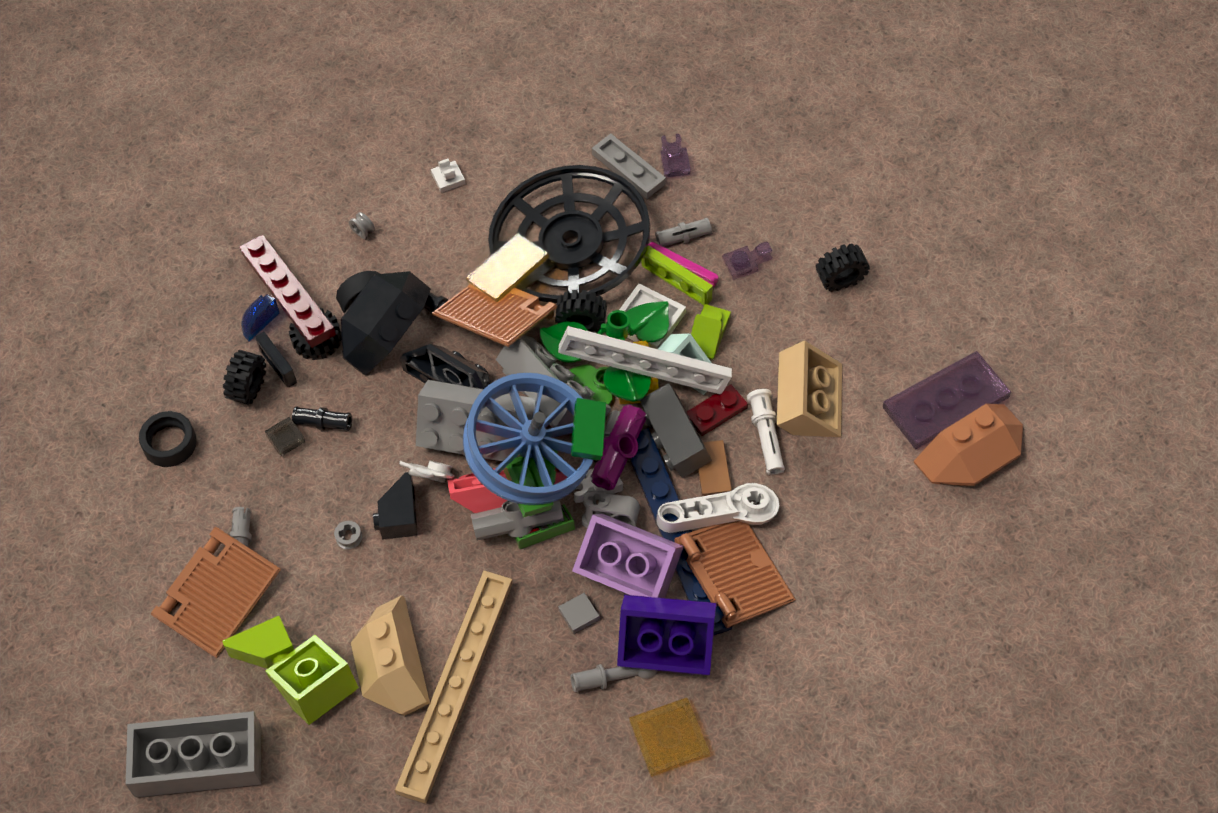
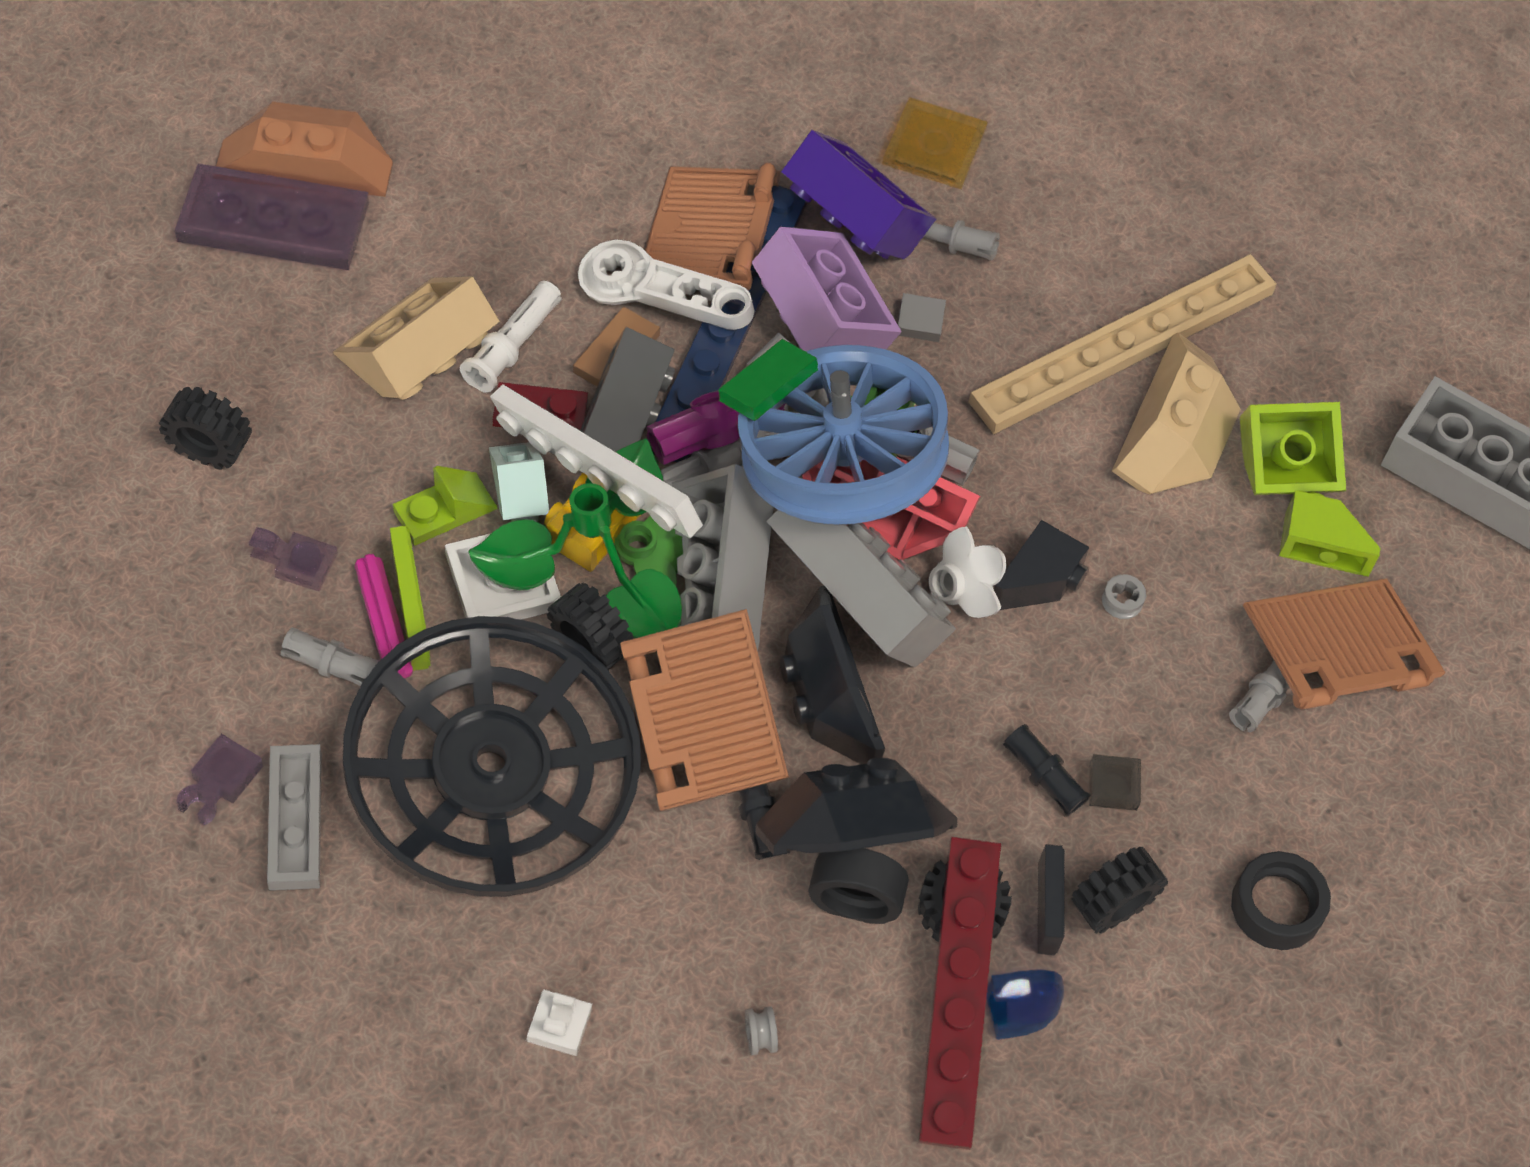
camera: 150 degrees left, 0 degrees up
(507, 267) = (627, 761): clear yellow piece -> none

